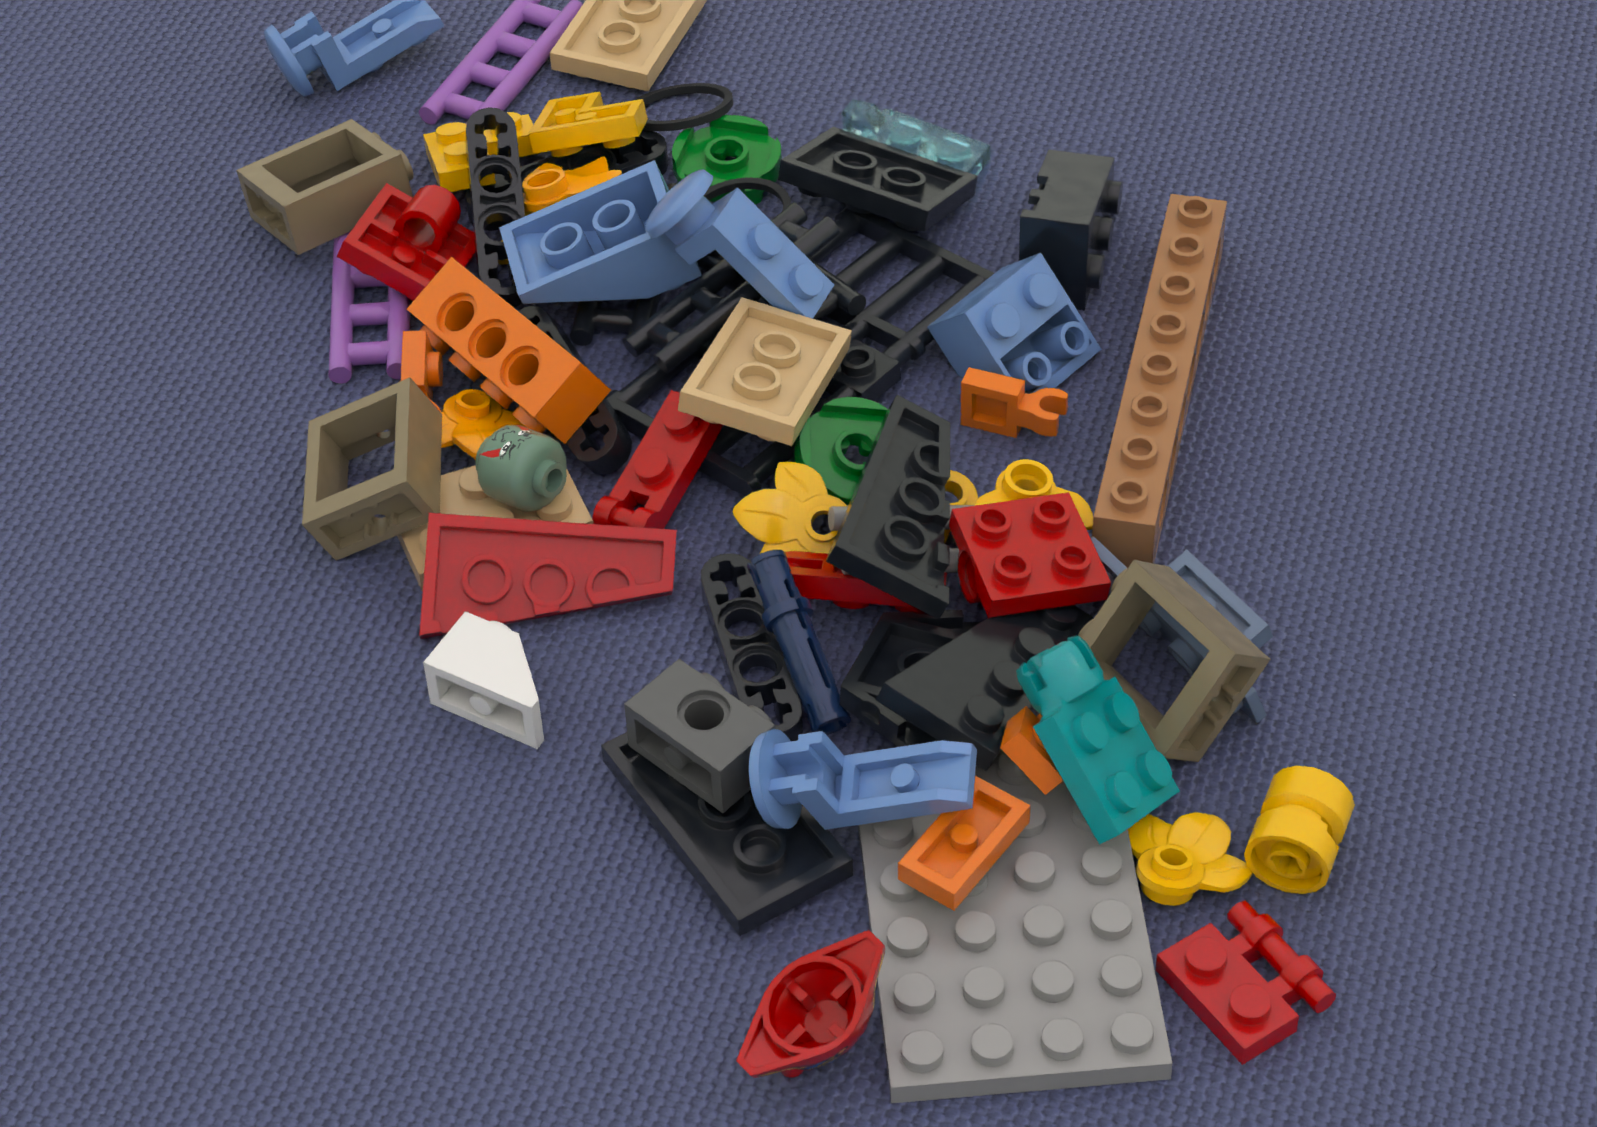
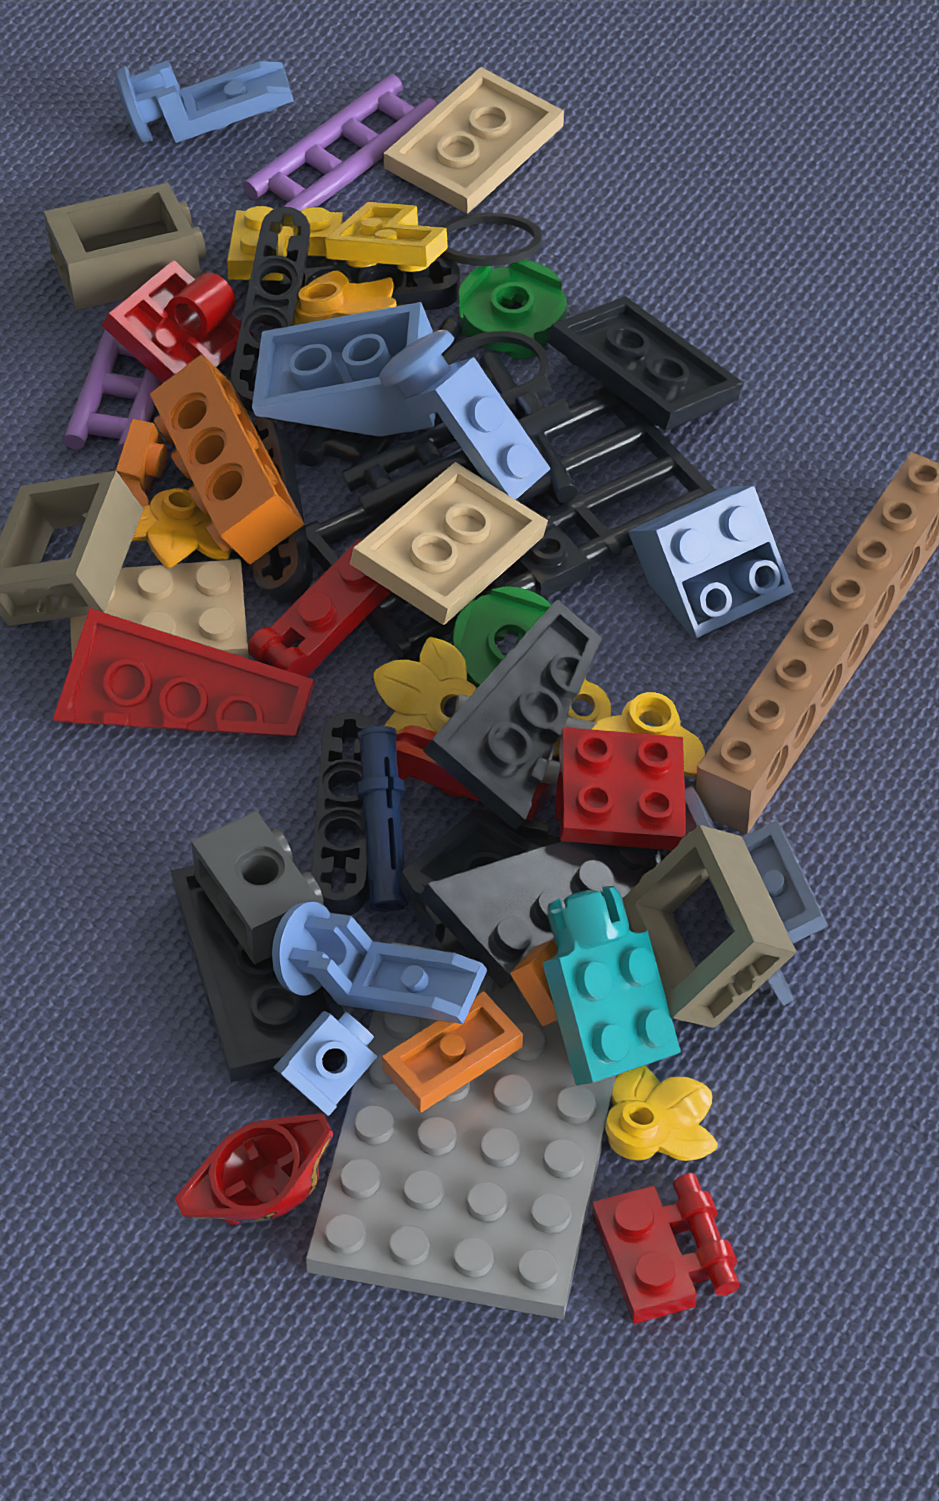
camera: 15 degrees right, 5 degrees up
(485, 679) = (94, 778): white slope -> none
(521, 467) = (192, 583): sand green head -> none
(818, 893) = (304, 1065): none -> light blue brick
(916, 136) = (703, 327): clear light blue hinge -> none
(1002, 406) = (669, 628): orange plate -> none
(1072, 219) = (808, 455): black wedge -> none
(1299, 829) = (768, 1120): yellow wheel -> none

